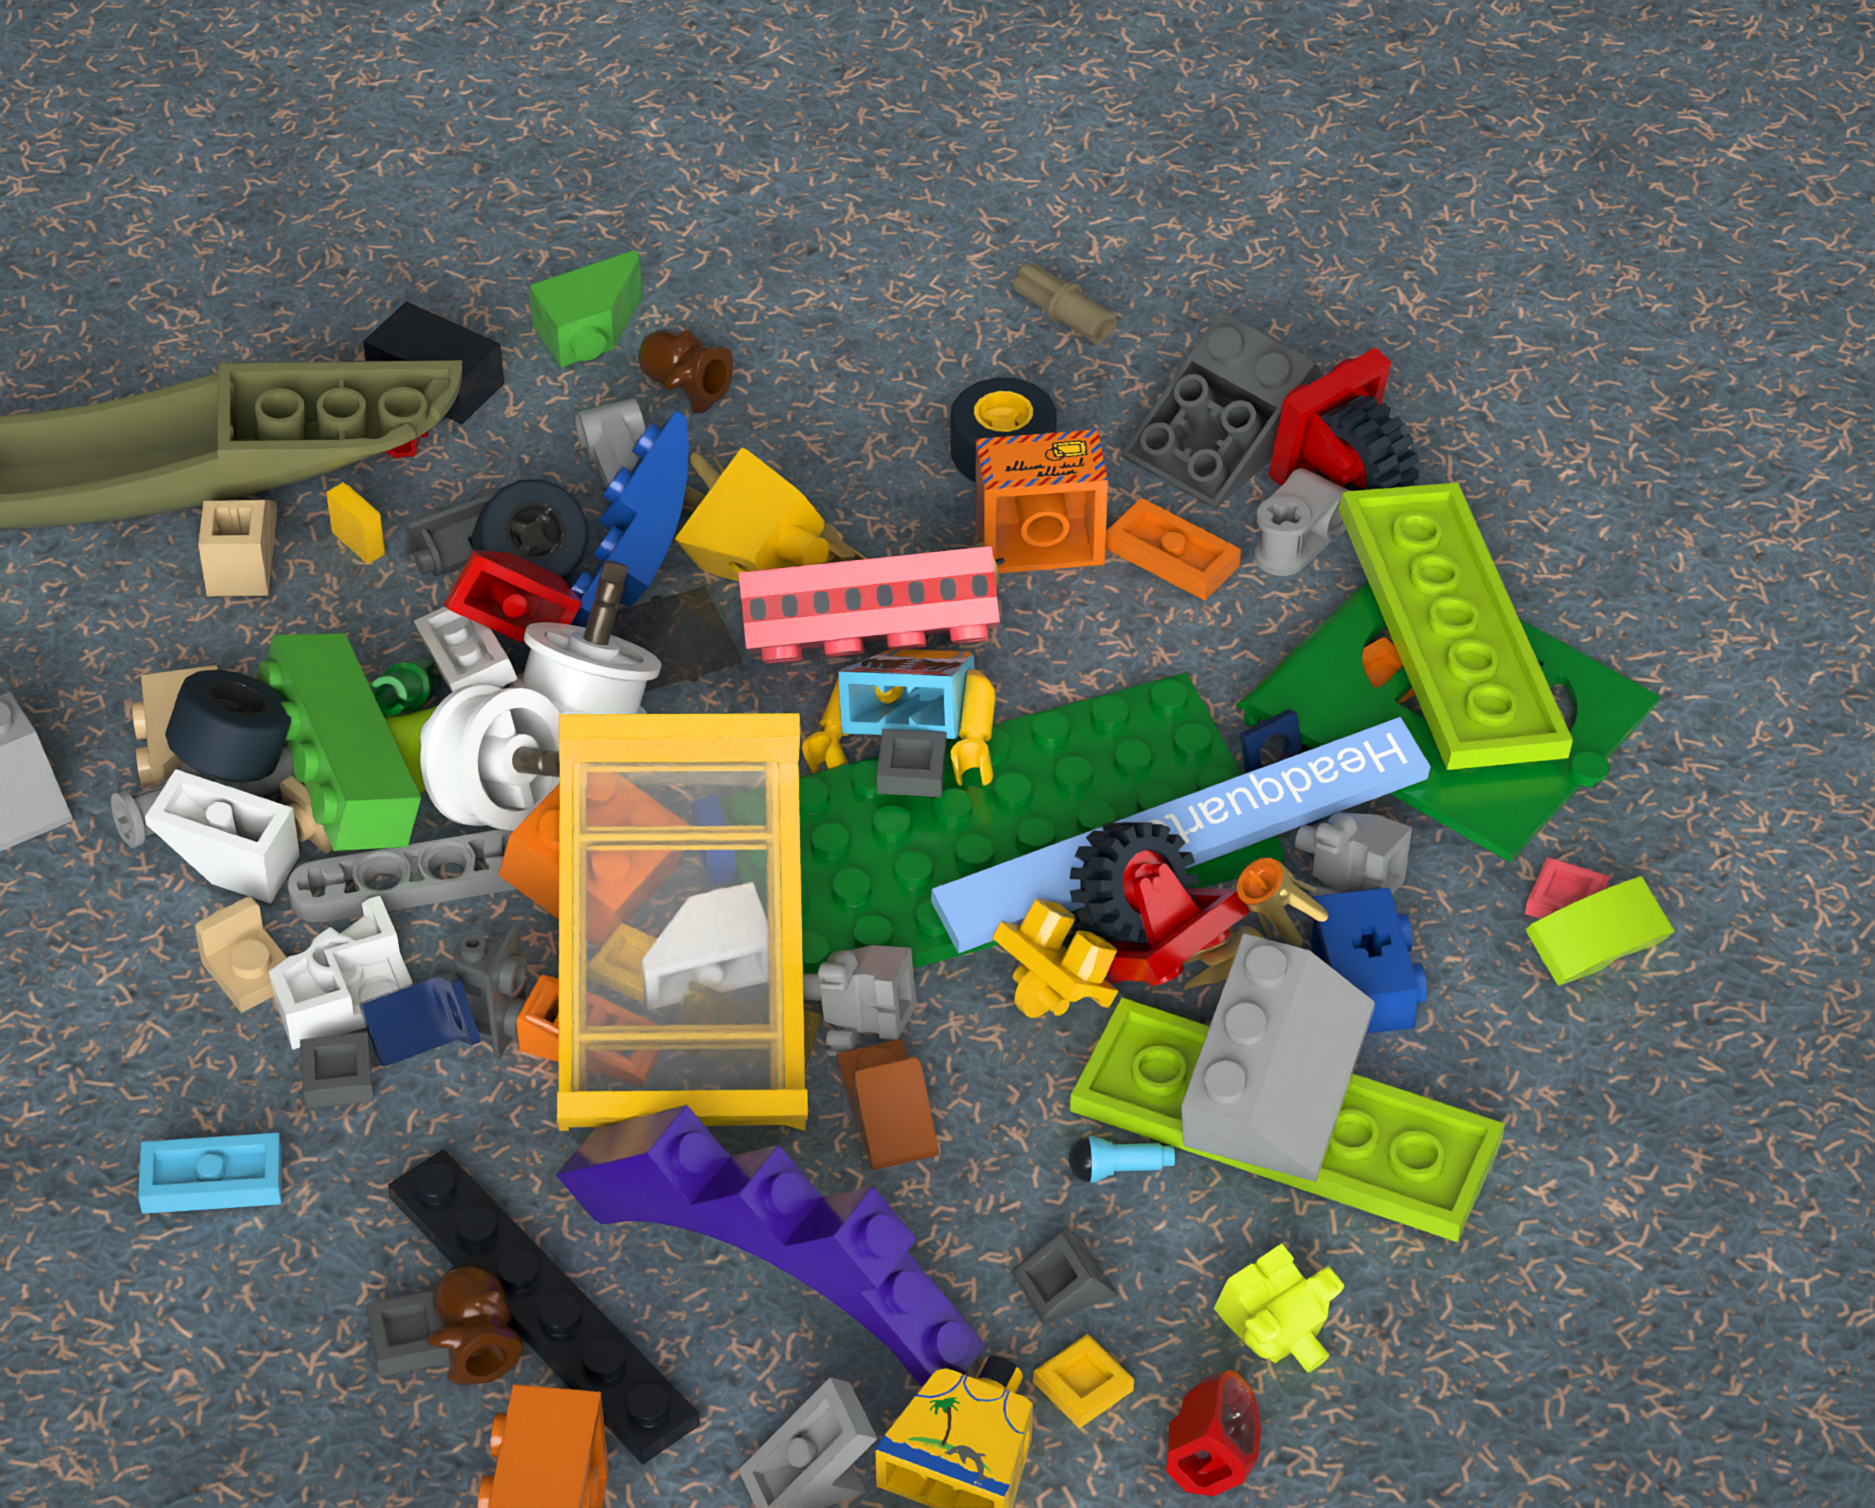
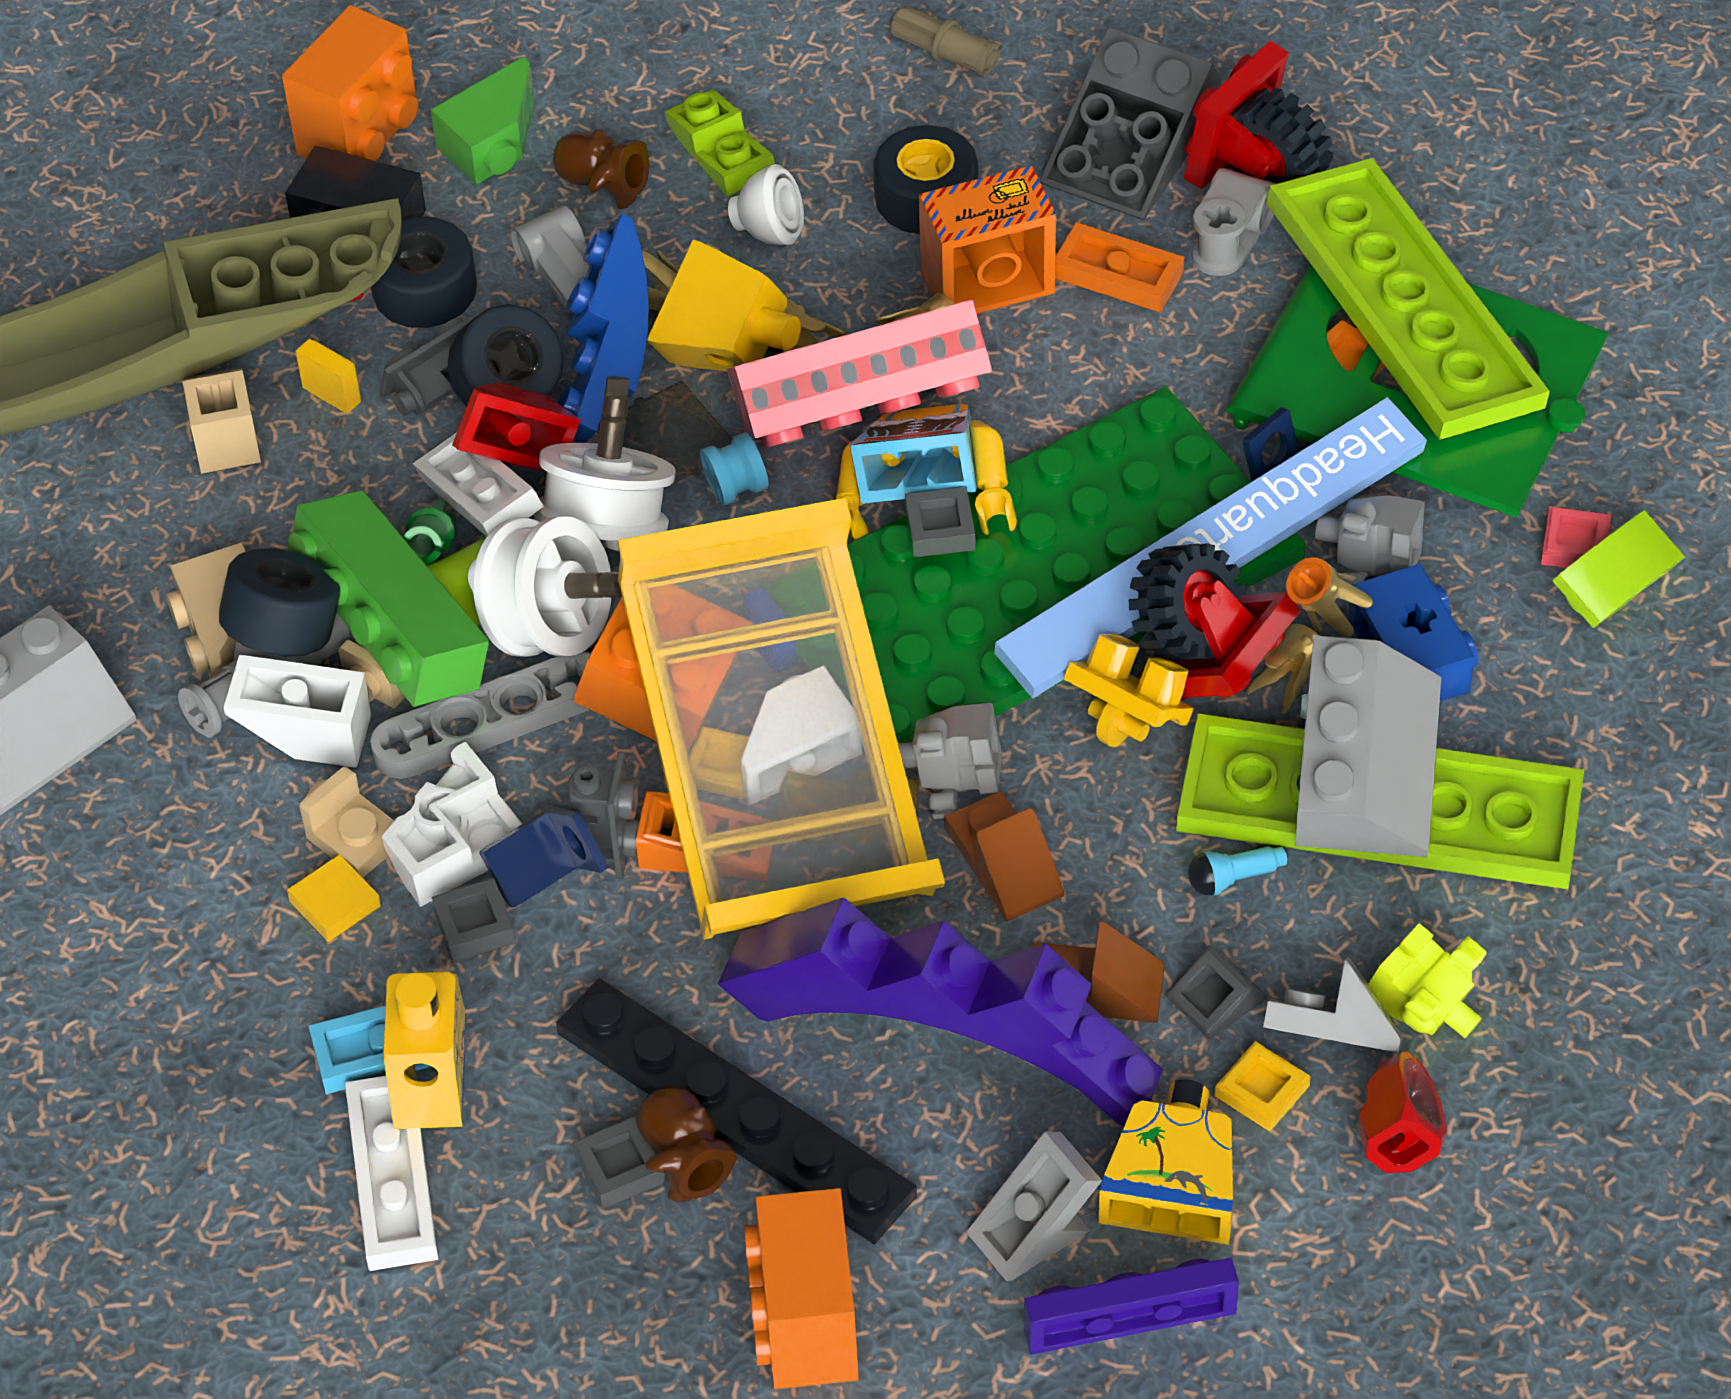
camera: 10 degrees left, 5 degrees up
(180, 1299) = (389, 1180): none -> white plate
(208, 1024) = (333, 898): none -> yellow tile
(242, 1155) = (426, 1027): none -> yellow torso
(458, 251) = (352, 87): none -> orange brick
(480, 441) = (429, 276): none -> black wheel
(727, 679) = (734, 468): none -> medium azure wheel
(811, 364) = (717, 139): none -> lime slope
(839, 431) = (769, 207): none -> white brick
(958, 1241) = (1122, 975): none -> dark orange slope
(1193, 1328) = (1356, 1020): none -> slope

